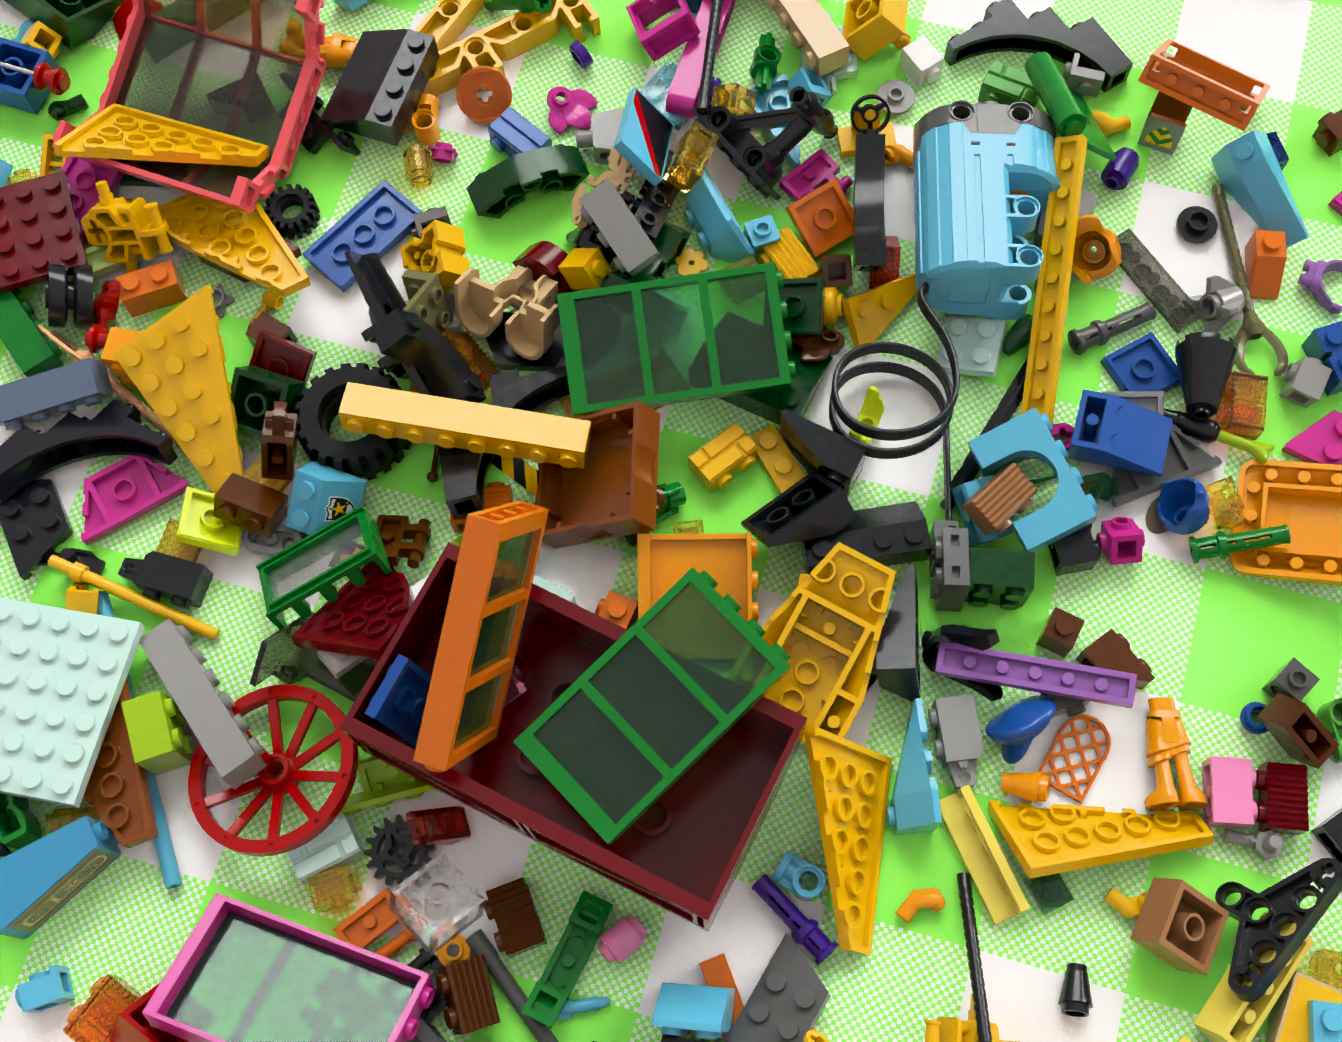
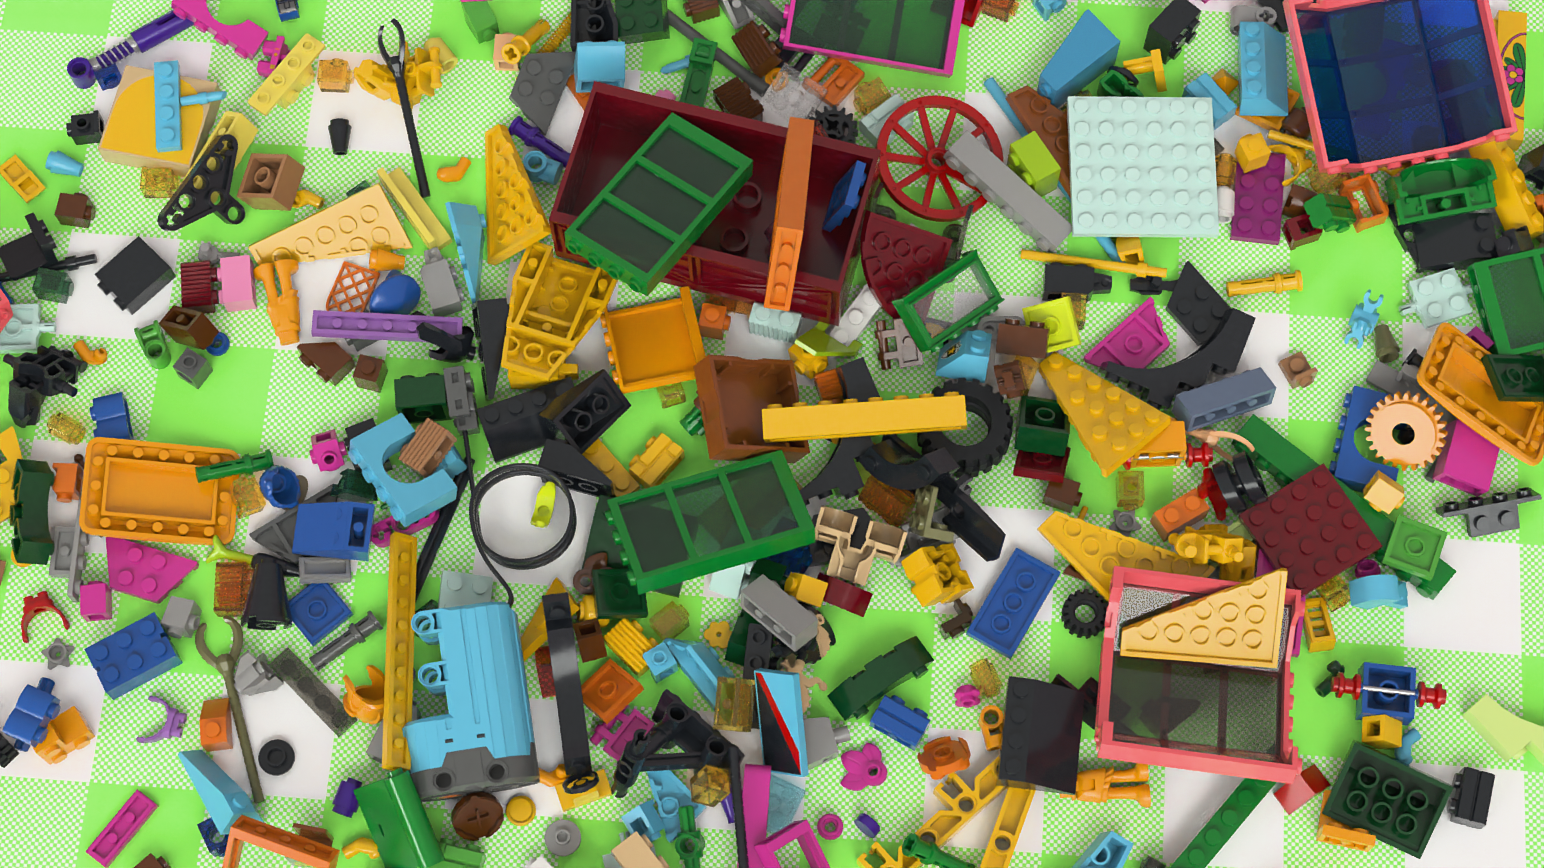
camera: 165 degrees right, 0 degrees up
(618, 56) = (830, 818): none -> dark pink plate

